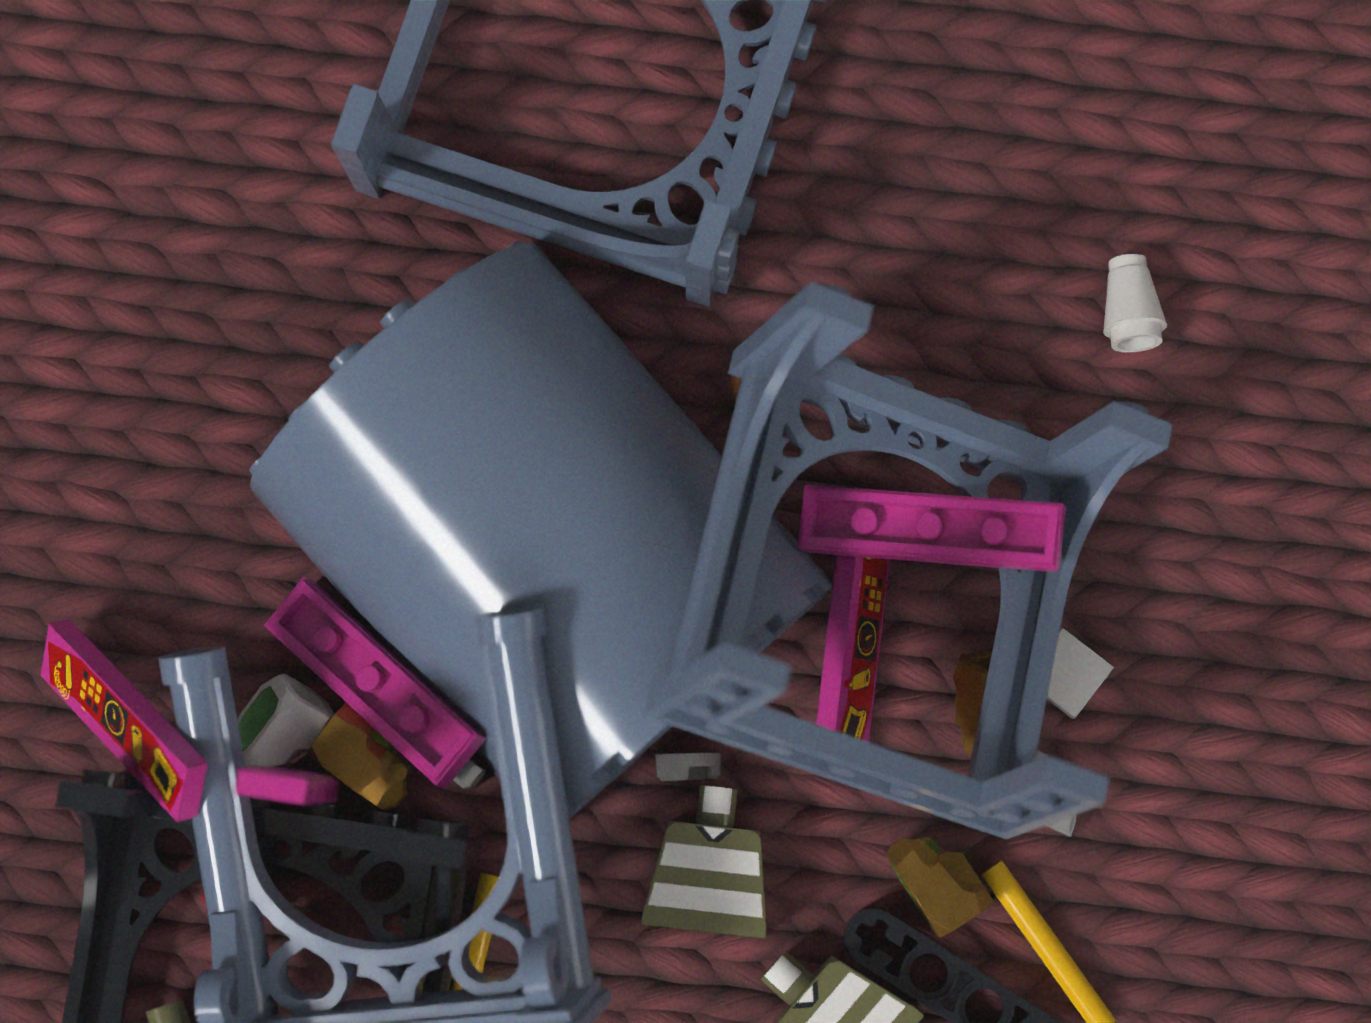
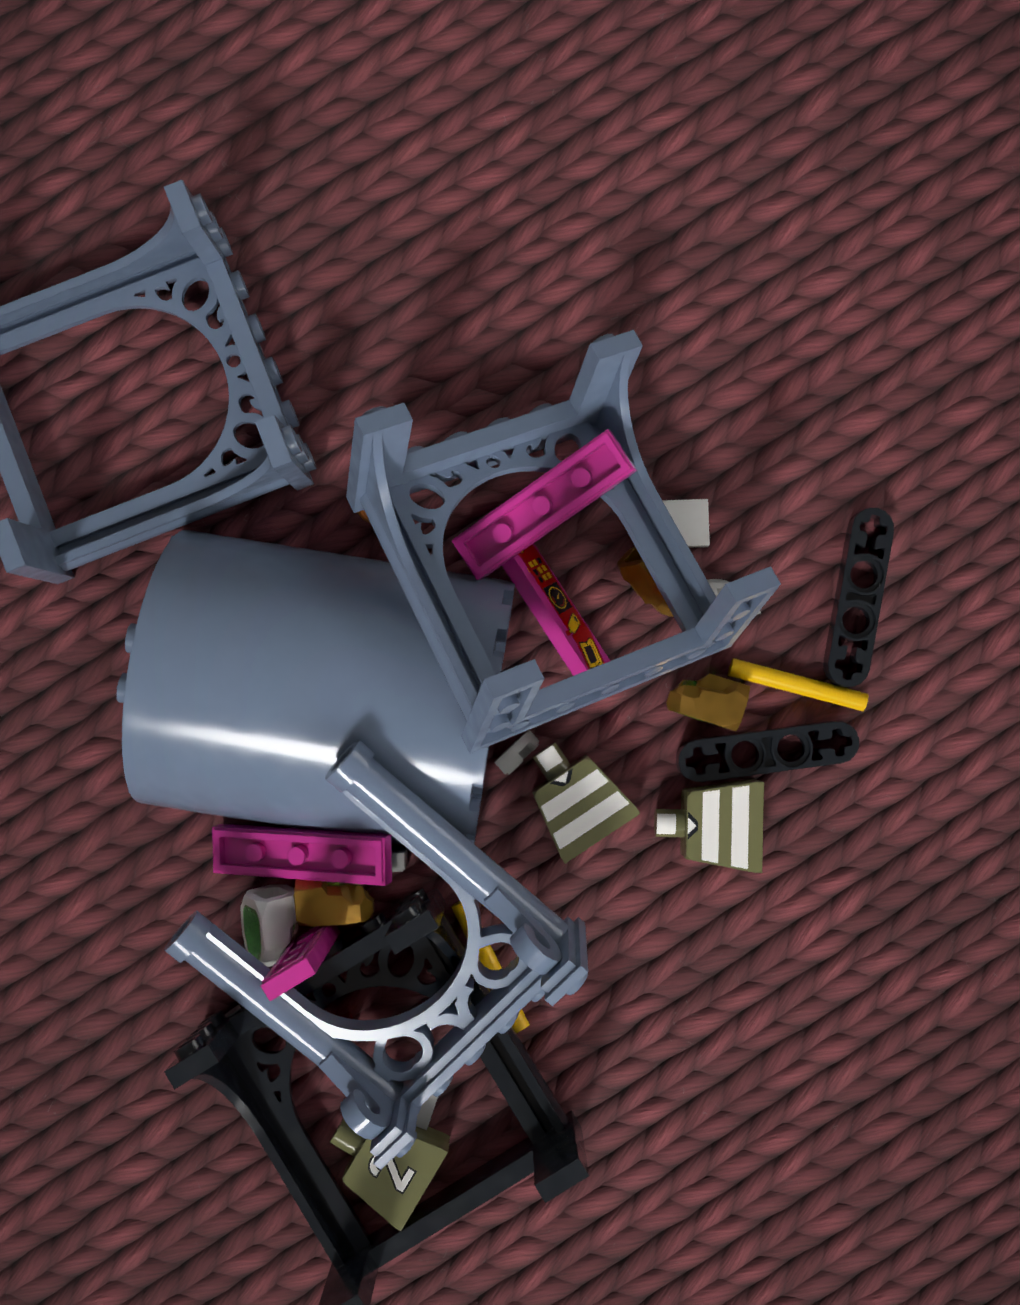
camera: 40 degrees left, 5 degrees up
(124, 720) = (177, 997): tile -> none
(1132, 306) = (551, 285): white cone -> none
(1197, 916) = (865, 599): none -> black beam

